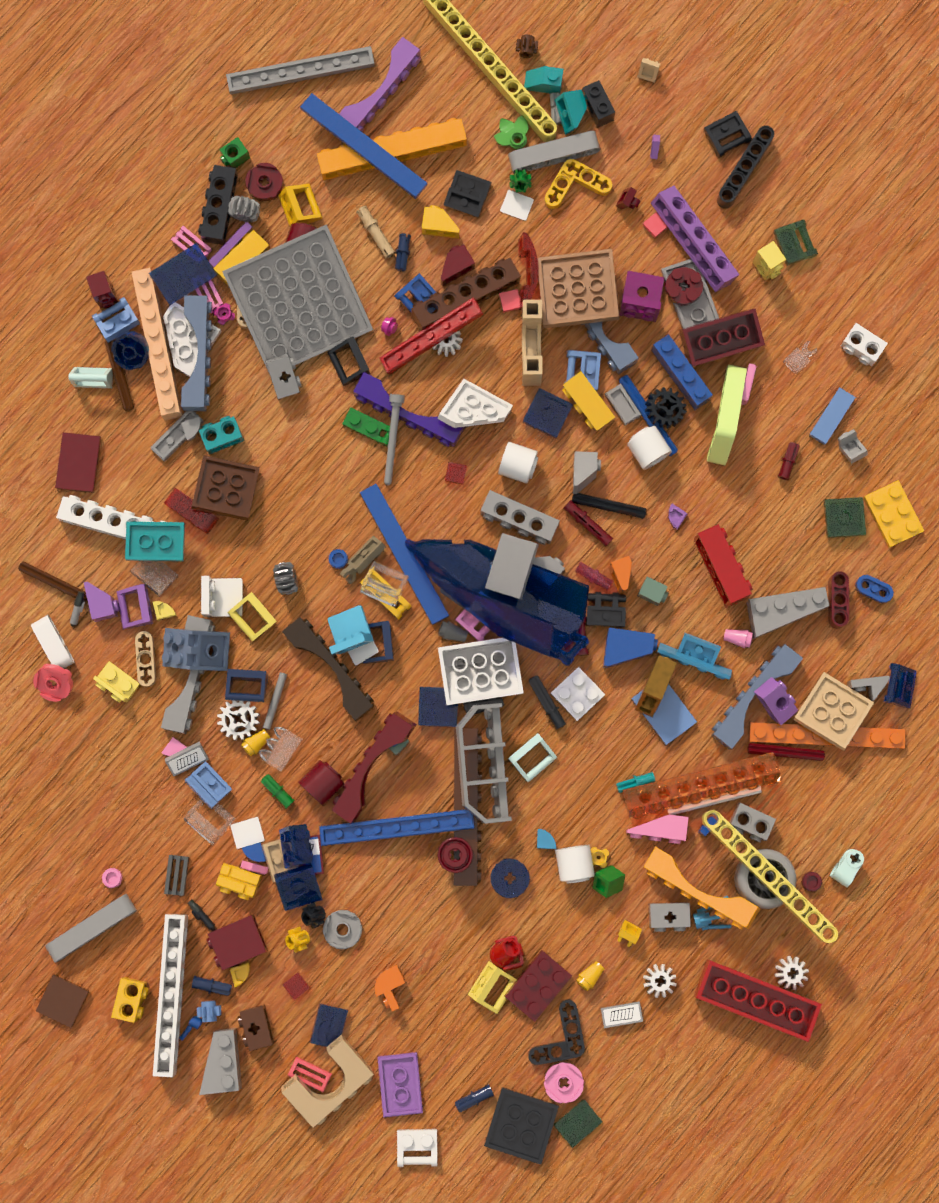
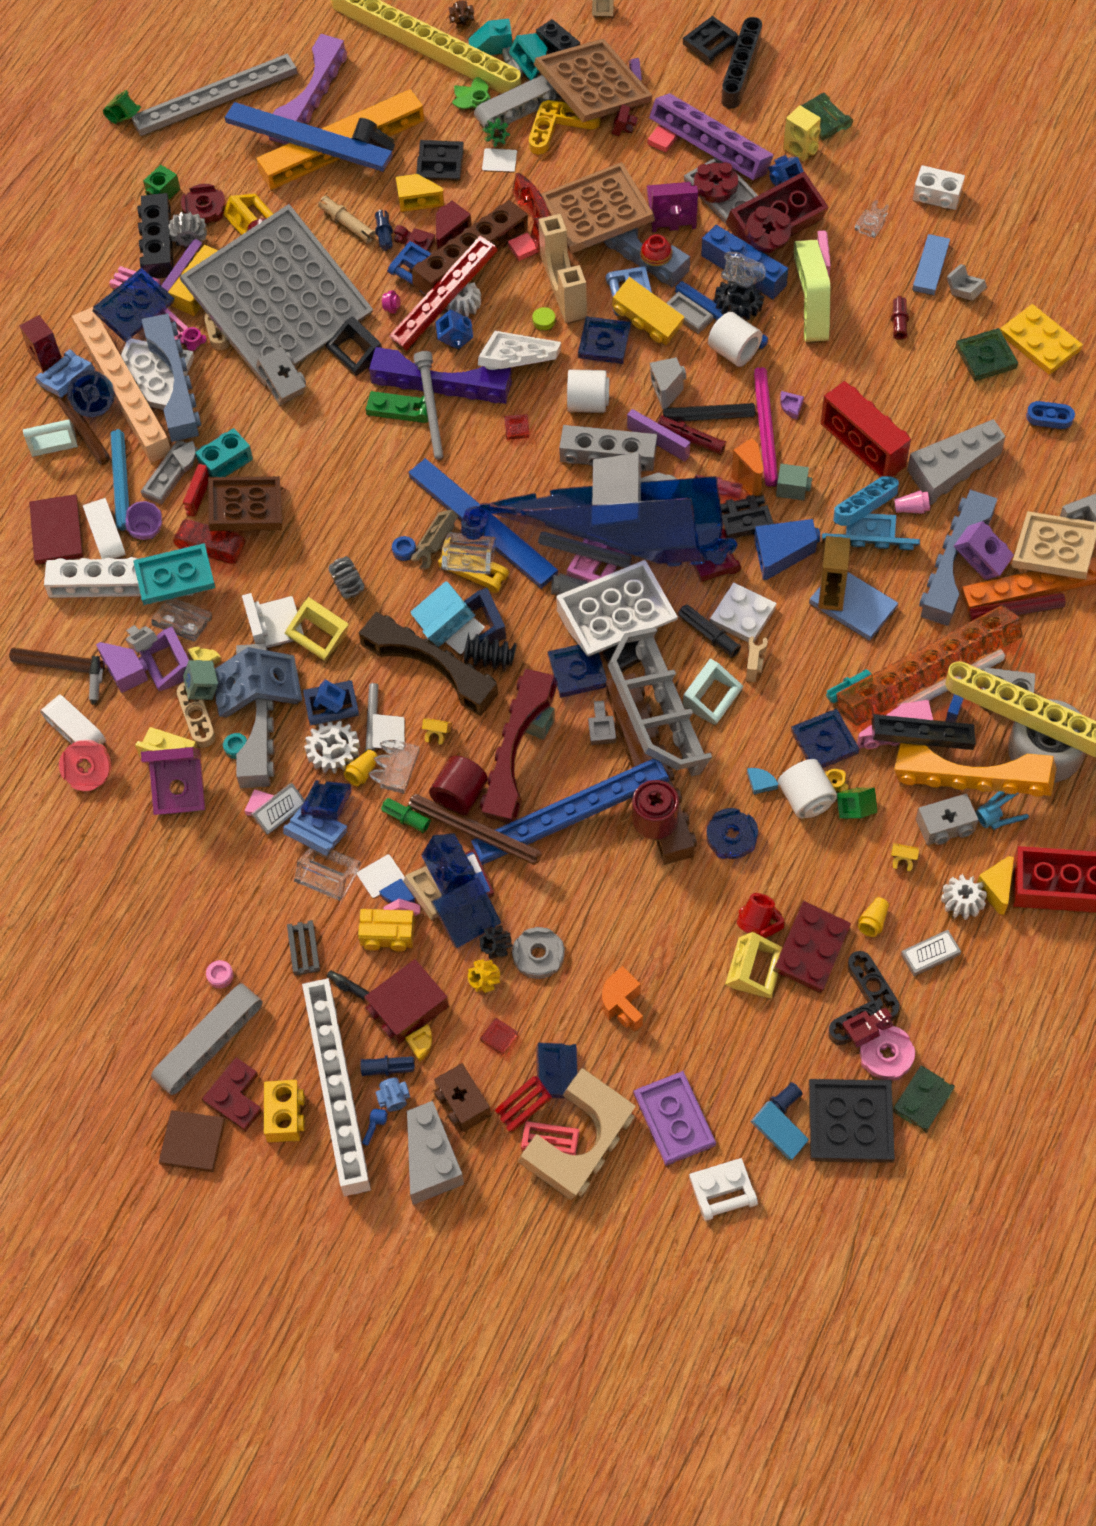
camera: 15 degrees left, 20 degrees down
(94, 975) = (228, 1098): none -> dark red plate
(113, 476) = (104, 529): none -> white beam
(115, 708) = (174, 765): none -> magenta bracket
(118, 587) = (140, 639): none -> light grey plate
(136, 432) = (119, 478): none -> dark azure axle
(145, 479) = (143, 520): none -> medium lavender hair
(154, 636) = (200, 679): none -> sand green brick
(168, 694) = (233, 743): none -> teal tile
(192, 461) = (196, 490): none -> red tile
(220, 65) = (121, 108): none -> green piece
(222, 765) = (326, 800): none -> clear blue plate
(245, 684) = (330, 696): none -> blue tile
(283, 715) = (387, 728): none -> white sticker
(284, 1049) = (506, 1116): none -> red tile
(320, 725) = (436, 726): none -> yellow tile
(323, 821) = (475, 829): none -> reddish brown axle
(375, 676) = (489, 652): none -> black piece
(395, 562) = (475, 522): none -> clear blue plate
(414, 159) = (367, 132): none -> black piece
(427, 269) = (419, 237): none -> dark red plate
(431, 371) = (454, 329): none -> blue brick
(441, 762) = (602, 726): none -> flat silver plate
(468, 1119) = (779, 1130): none -> dark azure tile
(506, 376) = (543, 318): none -> lime tile
(551, 1064) = (865, 1028): none -> dark red plate
(562, 516) = (665, 438): none -> medium lavender tile
(571, 743) = (755, 663): none -> tan plate
(602, 822) = (825, 738): none -> clear blue plate
(612, 346) = (656, 251): none -> red piece
(614, 153) = (592, 79): none -> medium nougat plate
(649, 532) = (765, 427): none -> dark pink axle
(674, 846) = (923, 732): none -> black plate
(675, 389) = (742, 269): none -> clear piece
(688, 977) = (997, 883): none -> yellow slope
(699, 625) = (865, 501): none -> dark azure beam
(718, 353) = (768, 217): none -> dark red plate
(744, 294) = (784, 169): none -> blue brick
(843, 592) = (1017, 442): dark red beam -> none

